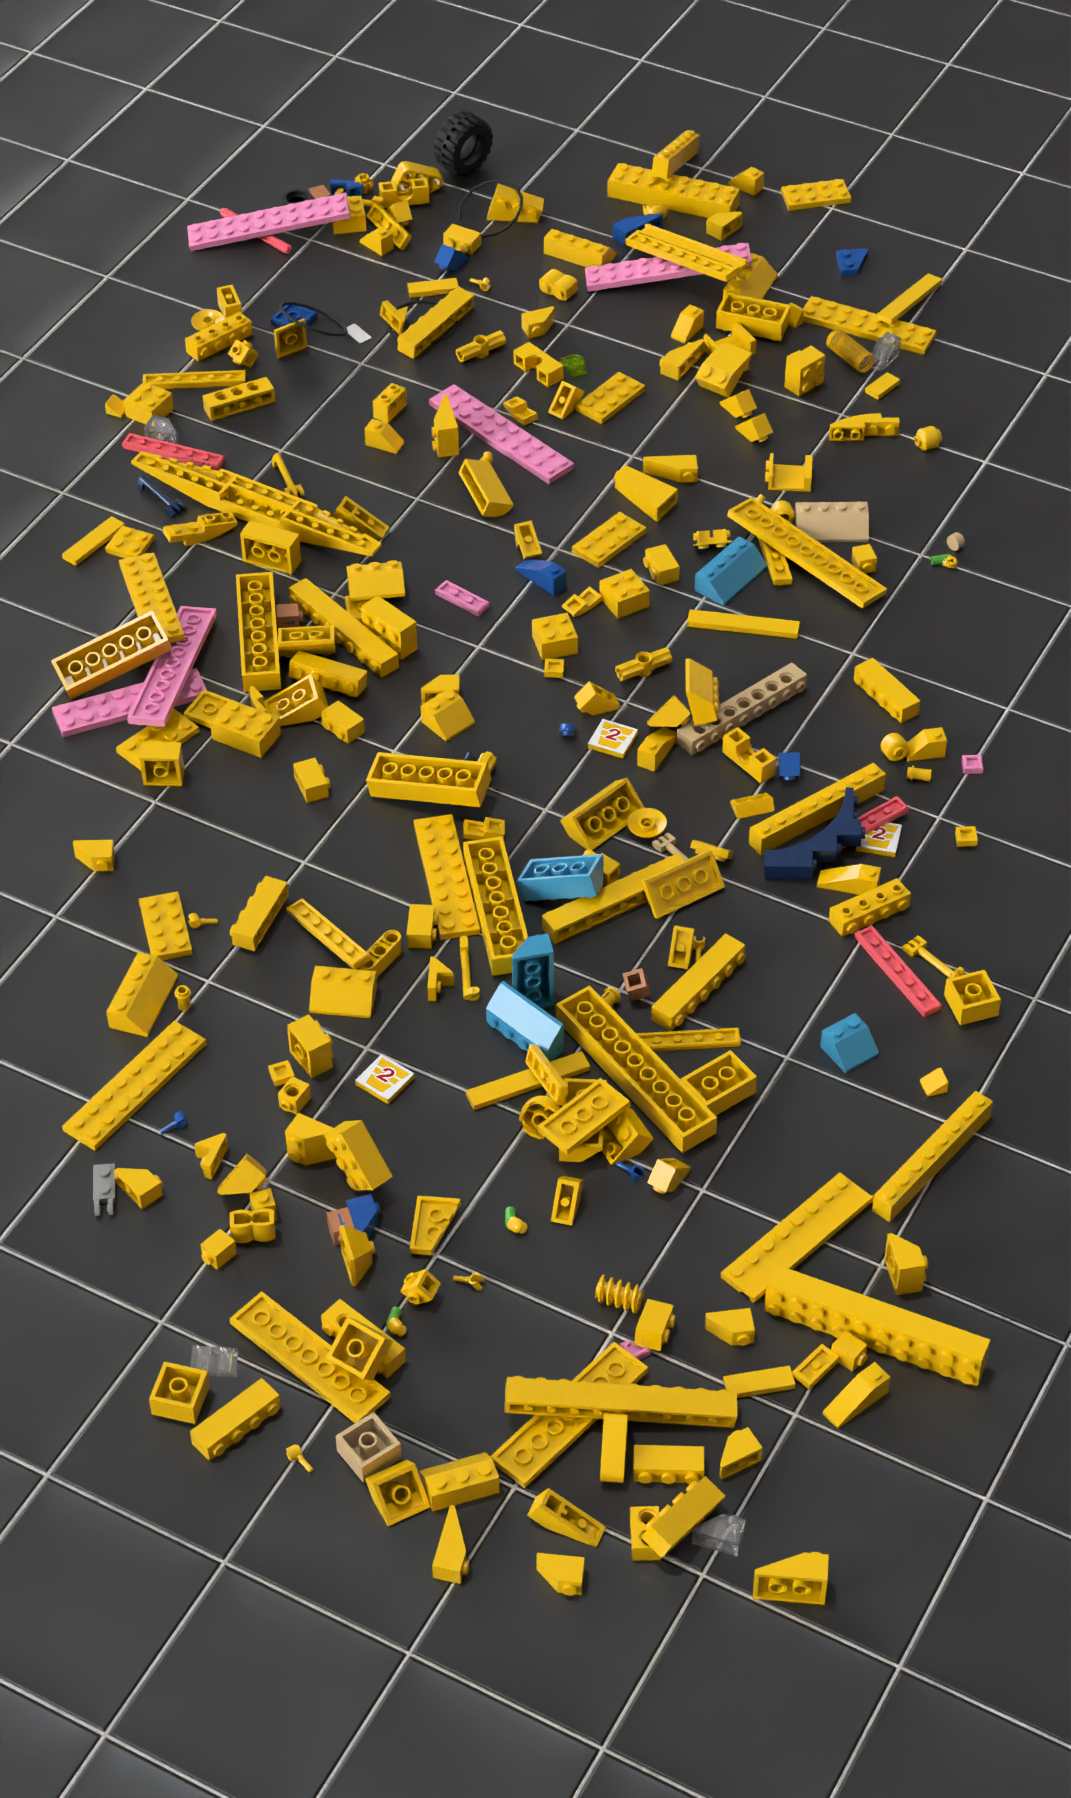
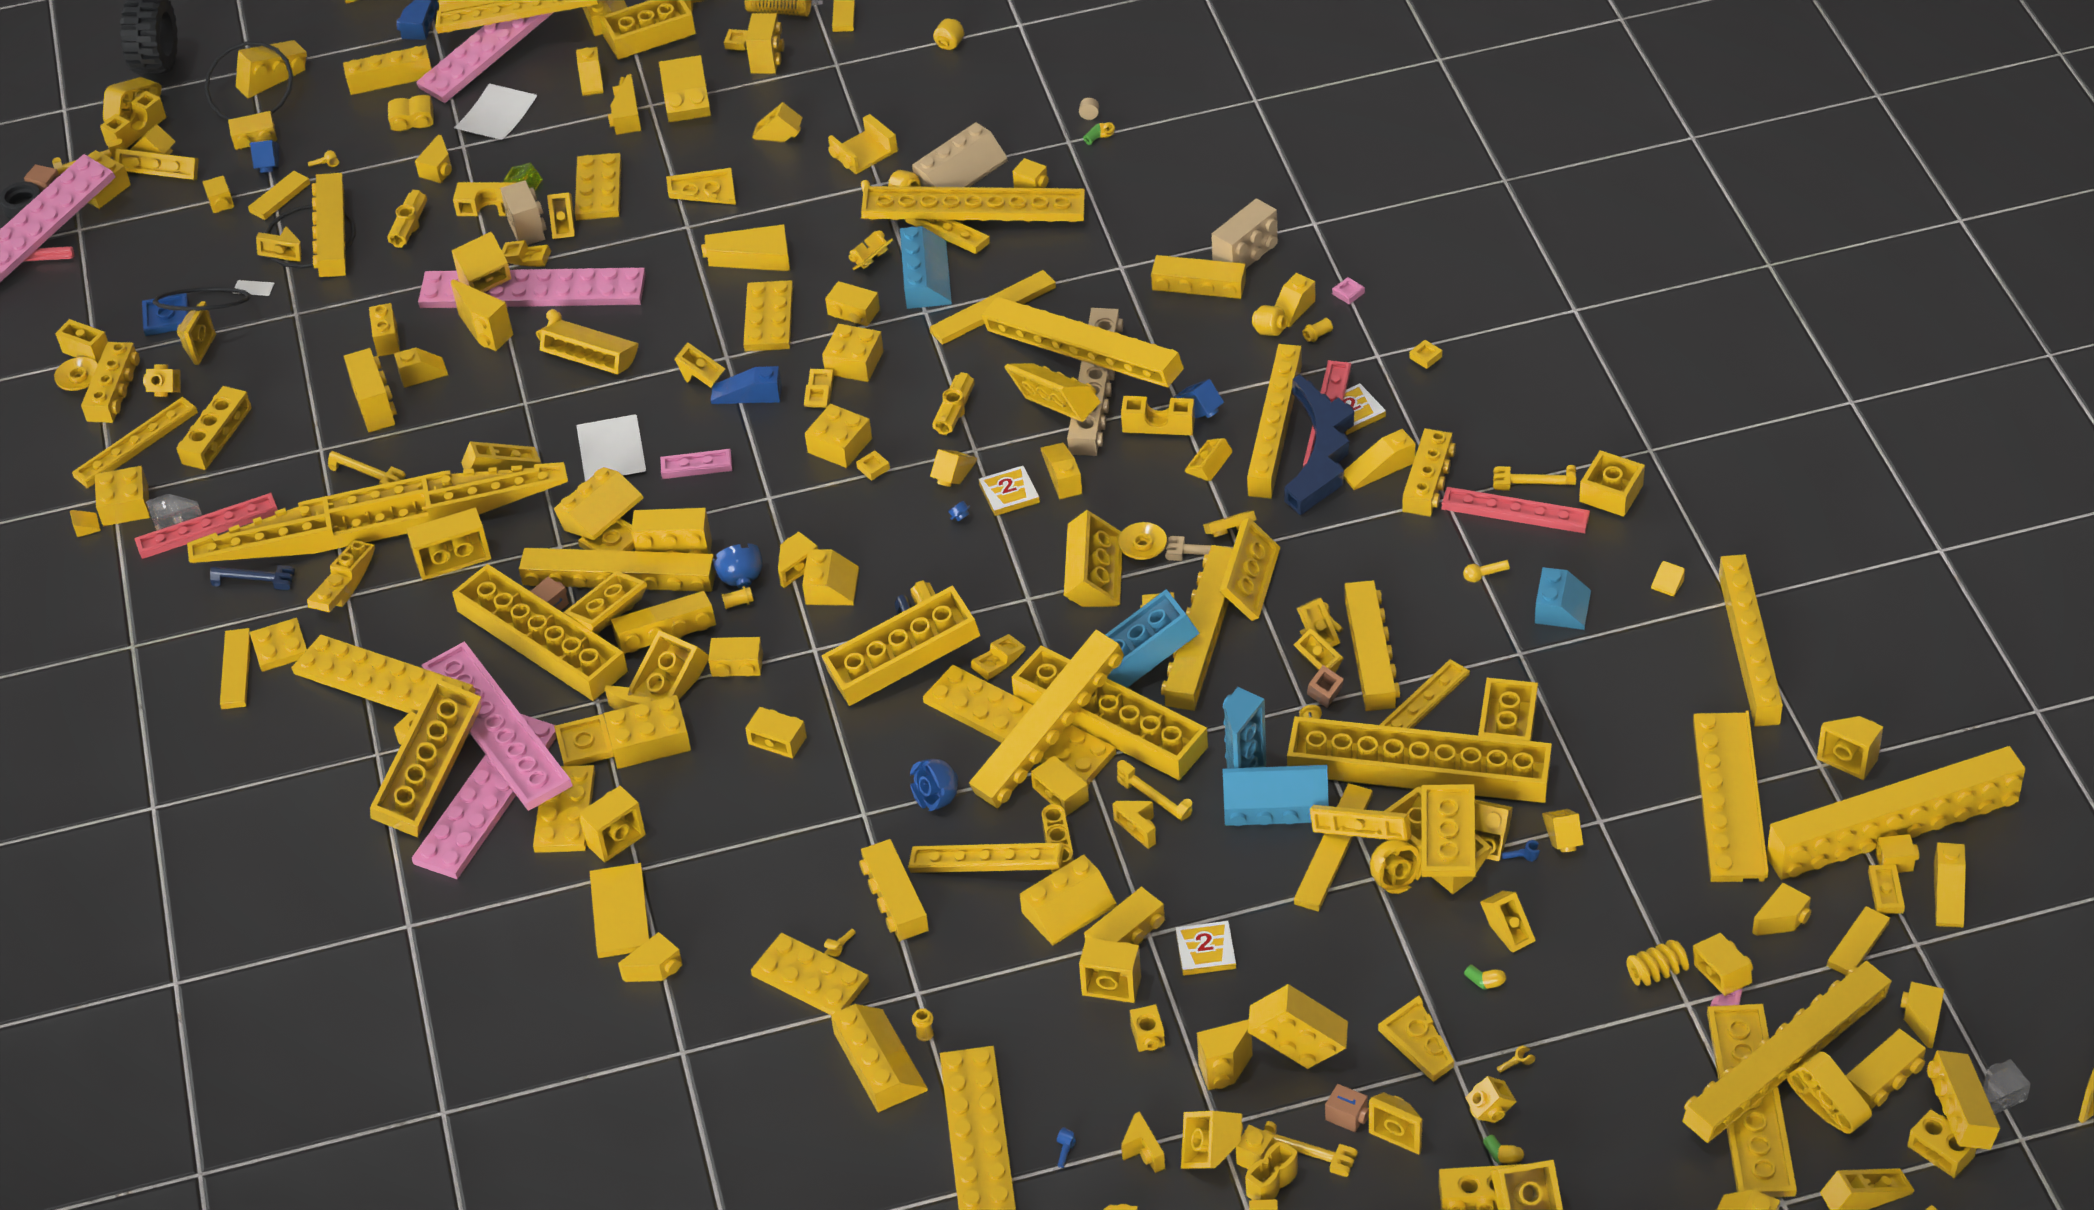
camera: 40 degrees left, 0 degrees up
(117, 814) = (619, 909): none -> yellow tile
(281, 1072) = (1106, 1018): yellow plate -> none
(303, 1249) = (1340, 1161): none -> yellow hinge
(336, 431) = (370, 389): none -> yellow brick
(350, 187) = (66, 151): blue slope -> none
(355, 872) = (934, 783): none -> blue cylinder
(356, 1030) = (1130, 919): none -> yellow brick
(364, 1213) = (1353, 1075): blue slope -> none
(366, 182) = (72, 139): yellow gear -> none
(379, 241) = (162, 184): yellow slope -> none
(387, 690) = (738, 597): none -> yellow pin
(399, 265) = (218, 194): none -> yellow brick
(406, 672) = (738, 565): none -> blue cylinder
(430, 556) = (611, 445): none -> white sticker
(449, 879) = (1047, 719): none -> yellow brick
(476, 397) = (481, 263): none -> yellow slope
(541, 384) = (523, 212): none -> tan brick
(609, 316) = (496, 112): none -> white sticker
(659, 963) = (1318, 651): none -> yellow slope
(667, 437) = (704, 186): none -> yellow wing
(670, 714) = (1044, 427): yellow slope -> none
(675, 468) = (749, 209): yellow slope -> none
(739, 338) = (647, 71): yellow panel -> none
(739, 404) = (735, 112): yellow slope -> none
(755, 678) = (1083, 341): none -> yellow brick
(821, 988) = (1474, 572): none -> yellow bar
(863, 425) = (877, 58): yellow slope -> none
(941, 684) = (1246, 234): none -> tan brick

